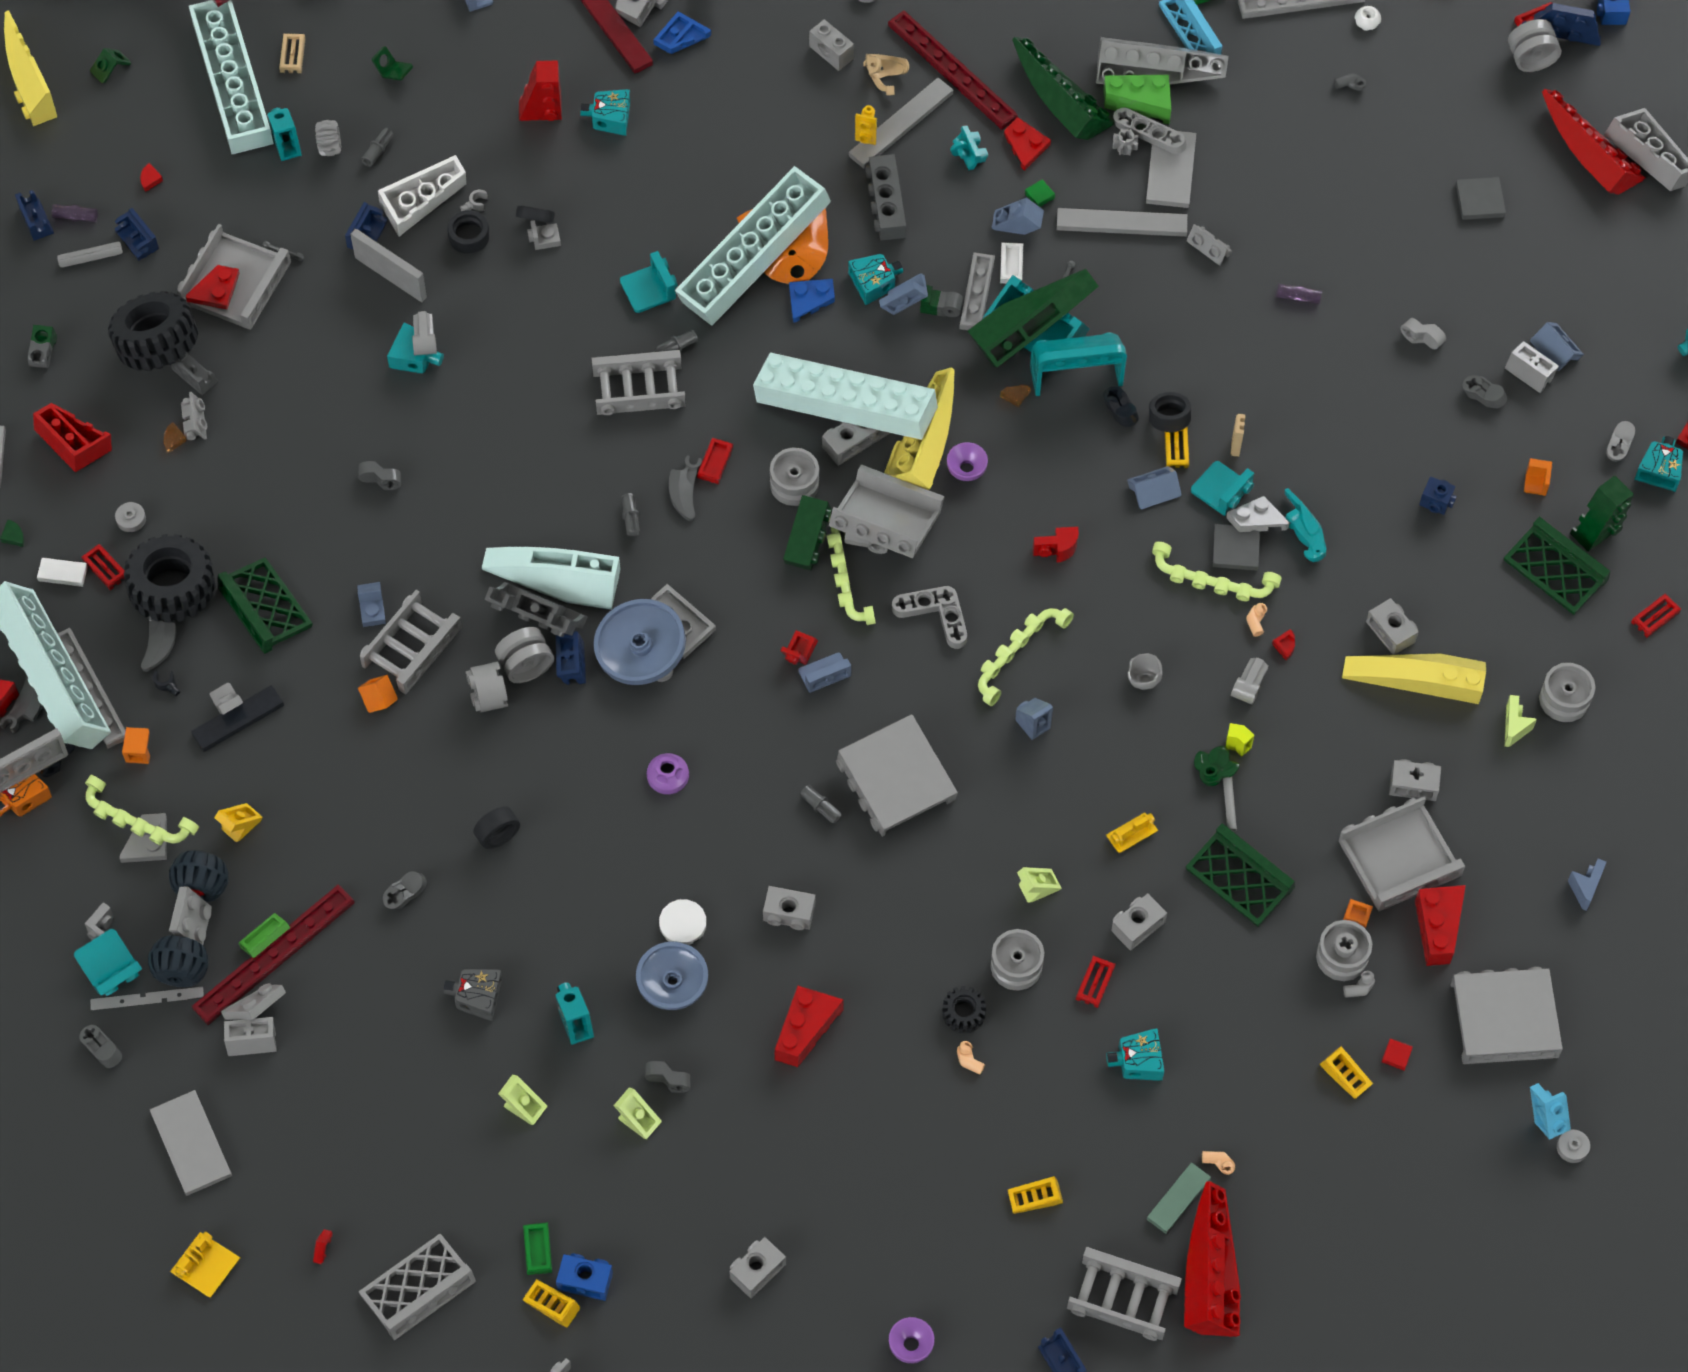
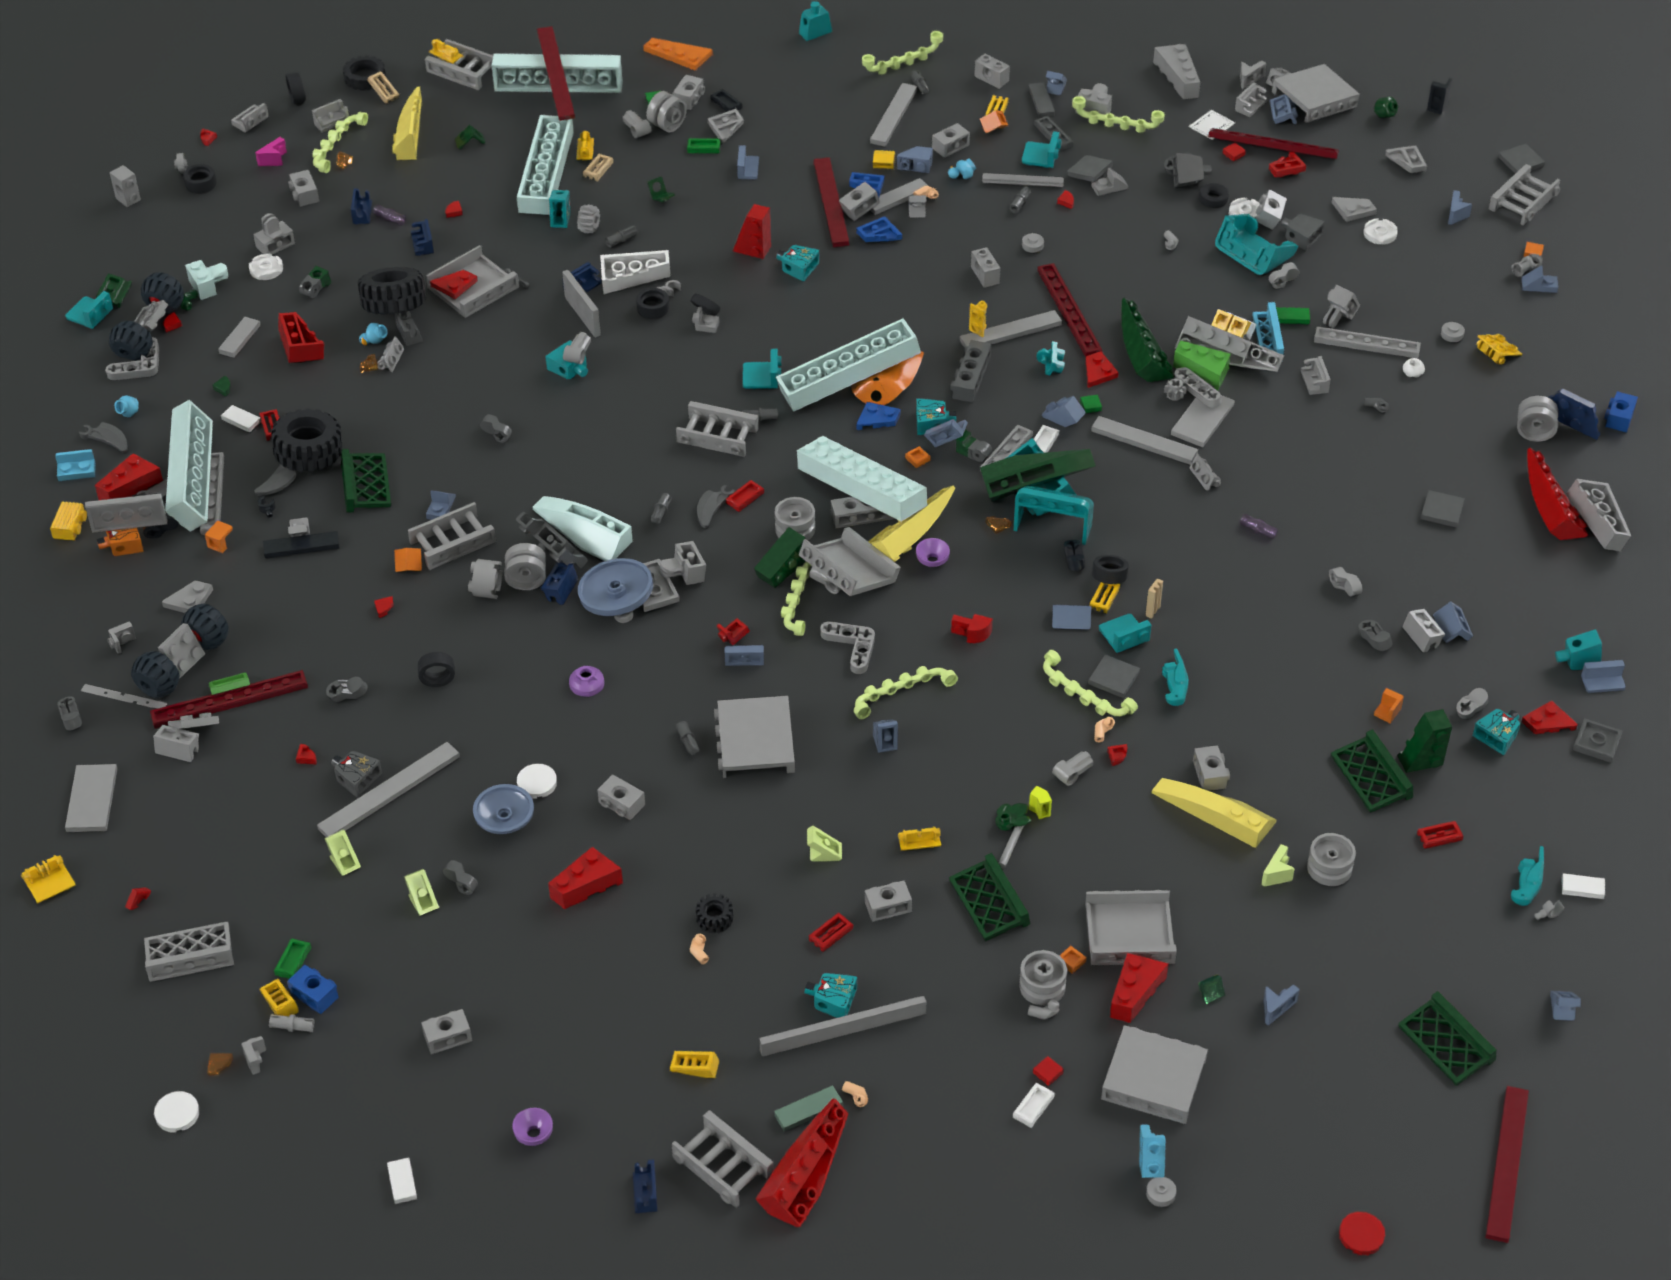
camera: 25 degrees right, 15 degrees down
(89, 254) = (384, 241): light grey axle -> none
(107, 962) = (108, 660): teal bracket -> none
(130, 517) = (308, 399): light grey wheel -> none
(139, 826) = (185, 582): yellowish green bar -> none
(159, 396) = (374, 334): none -> medium azure animal
(238, 820) = (258, 605): yellow slope -> none
(261, 29) = (585, 147): none -> yellow hinge
(382, 764) = (383, 605): none -> red tile
(405, 991) = (305, 755): none -> red tile
(524, 1000) = (389, 790): none -> light grey tile
(572, 1007) = (415, 801): teal torso -> none
(583, 1326) = (291, 1023): none -> light grey pin
(701, 580) = (686, 562): none -> light grey brick
(882, 336) = (917, 457): none -> orange tile
(891, 67) = (1023, 293): tan helmet -> none
(1017, 959) = (774, 891): light grey wheel -> none
(1145, 671) = (991, 732): light grey hair -> none
(1155, 29) = (1234, 324): none -> yellow hips
(1167, 1089) = (842, 1026): none -> light grey tile
(1257, 516) = (1140, 659): light grey wing -> none
(1269, 68) = (1316, 376): none -> light grey hinge
(1340, 1078) = (999, 1052): yellow slope -> none
(1401, 1099) = (1033, 1105): none -> white tile
(1426, 782) = (1167, 876): light grey brick -> none
(1438, 496) = (1296, 690): dark blue brick -> none
(1515, 893) = (1211, 988): none -> clear green tile

